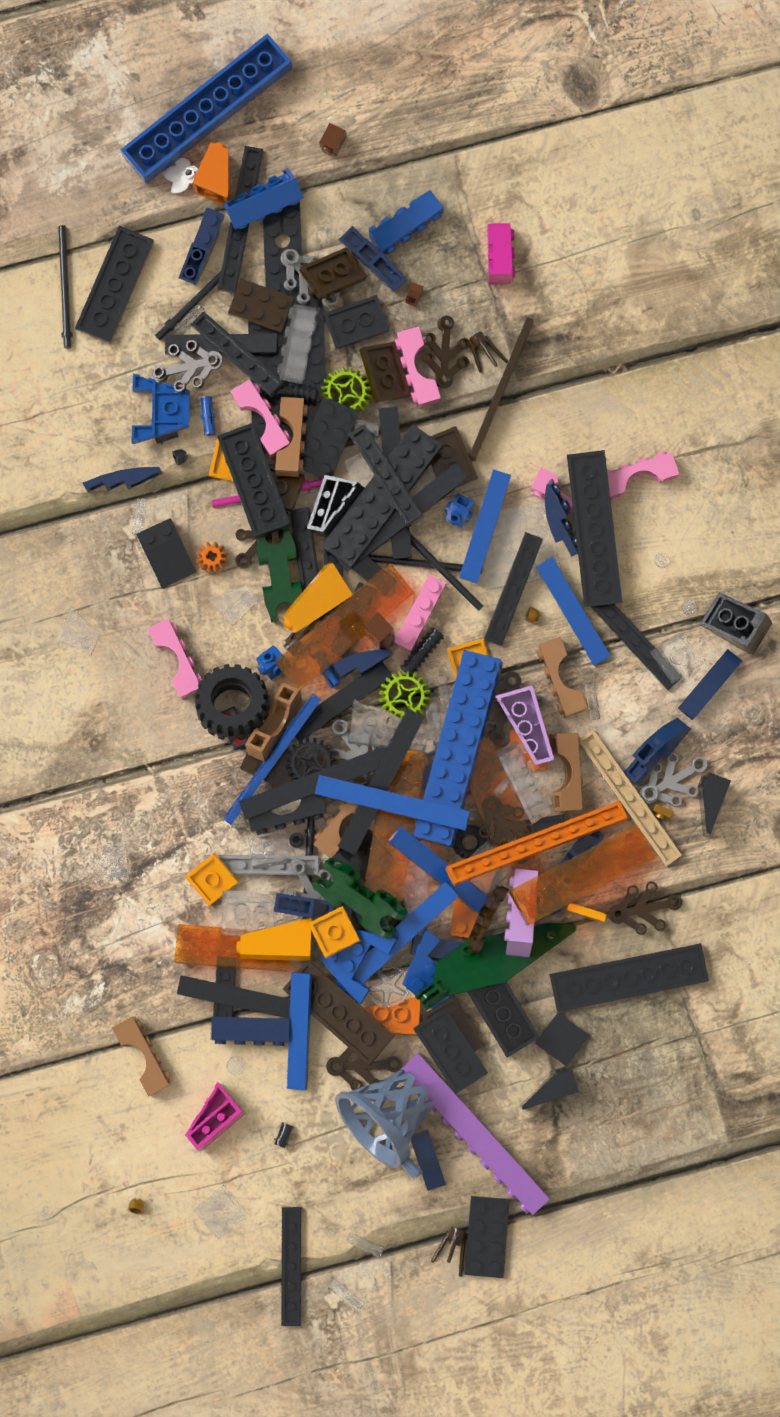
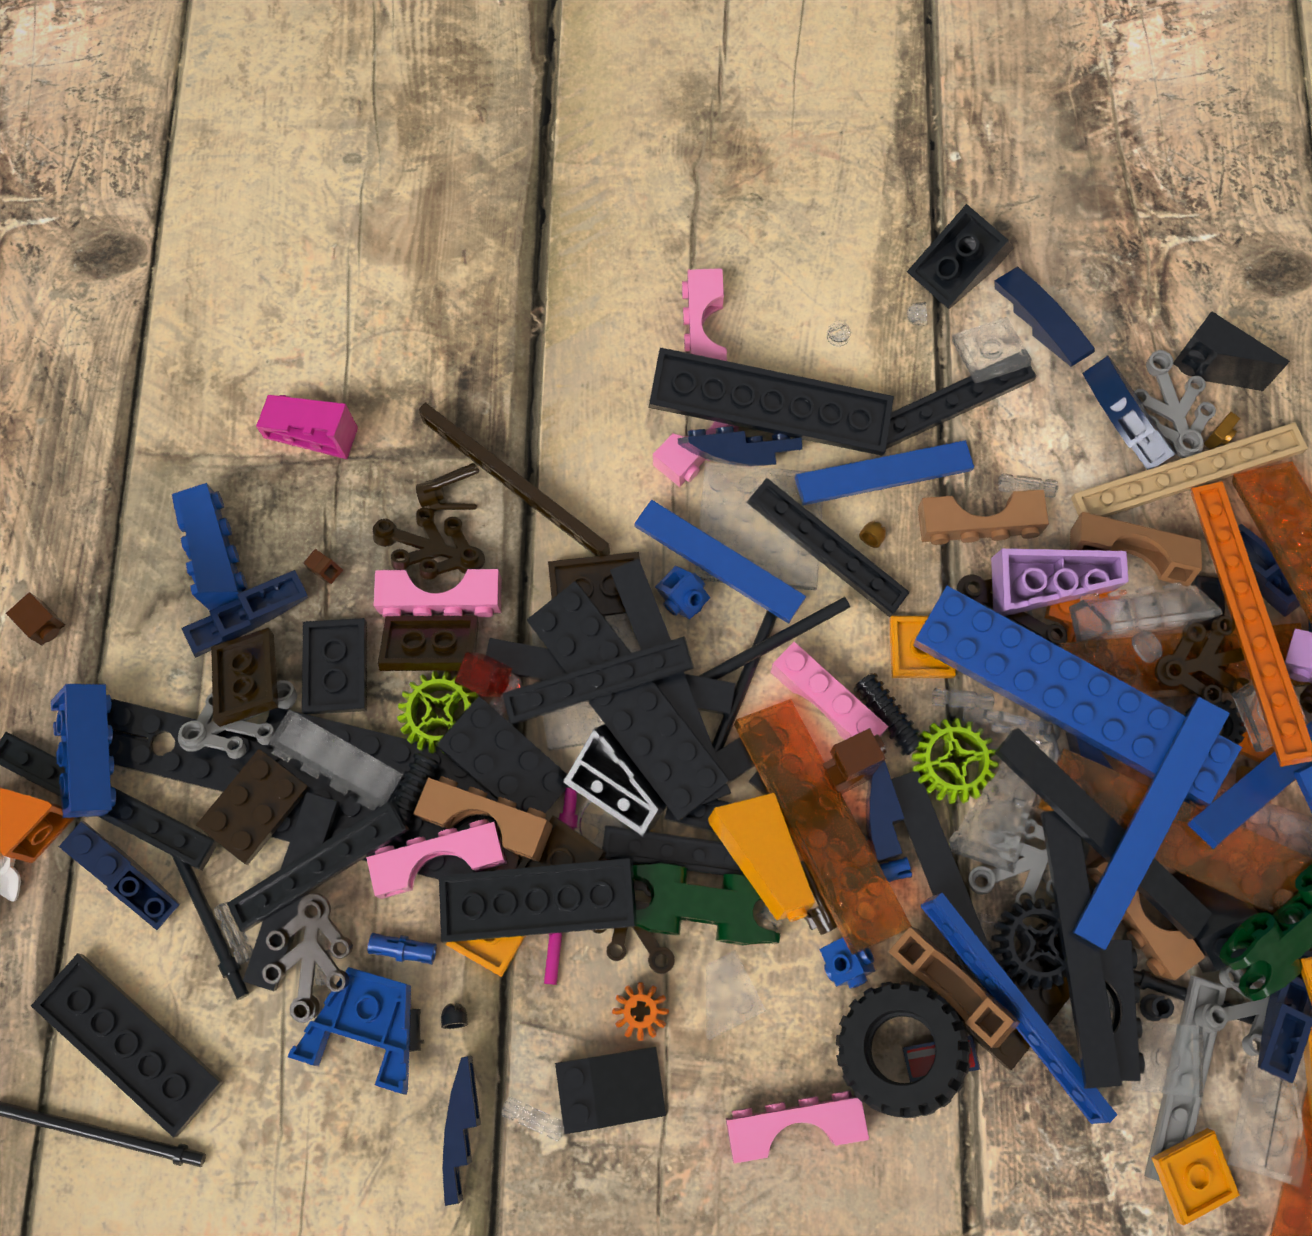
camera: 75 degrees left, 10 degrees down
(372, 410) = (483, 675): none -> clear red brick

